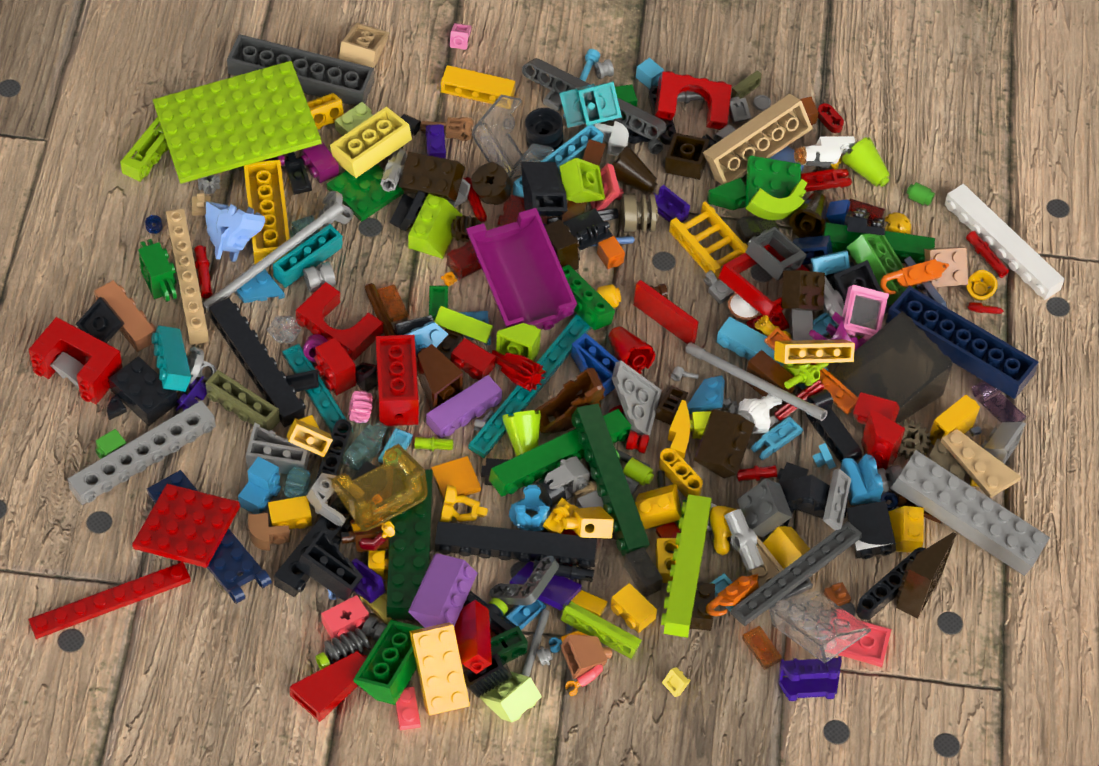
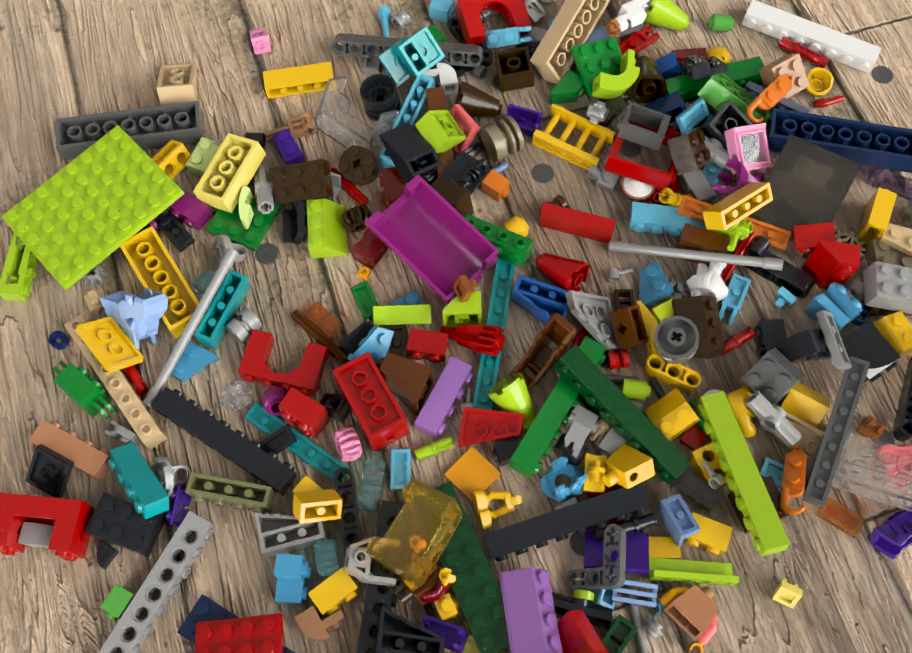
camera: 20 degrees left, 10 degrees up
(175, 320) = (126, 435): none -> light grey plate
(197, 242) = (109, 344): none -> yellow plate
(368, 181) = (245, 209): none -> yellowish green slope
(489, 442) = (488, 425): none -> red wing
(527, 319) = (464, 288): none -> dark orange tile
(530, 614) = (639, 593): none -> light blue tile
(613, 581) = (677, 518): none -> medium blue panel
(660, 415) = (628, 327): none -> reddish brown brick
(661, 564) = (715, 479): none -> light grey hand
(693, 440) = (676, 328): none -> dark grey wheel
(696, 124) = (506, 37): none -> medium azure hinge
(740, 224) = (597, 112): none -> light grey gear

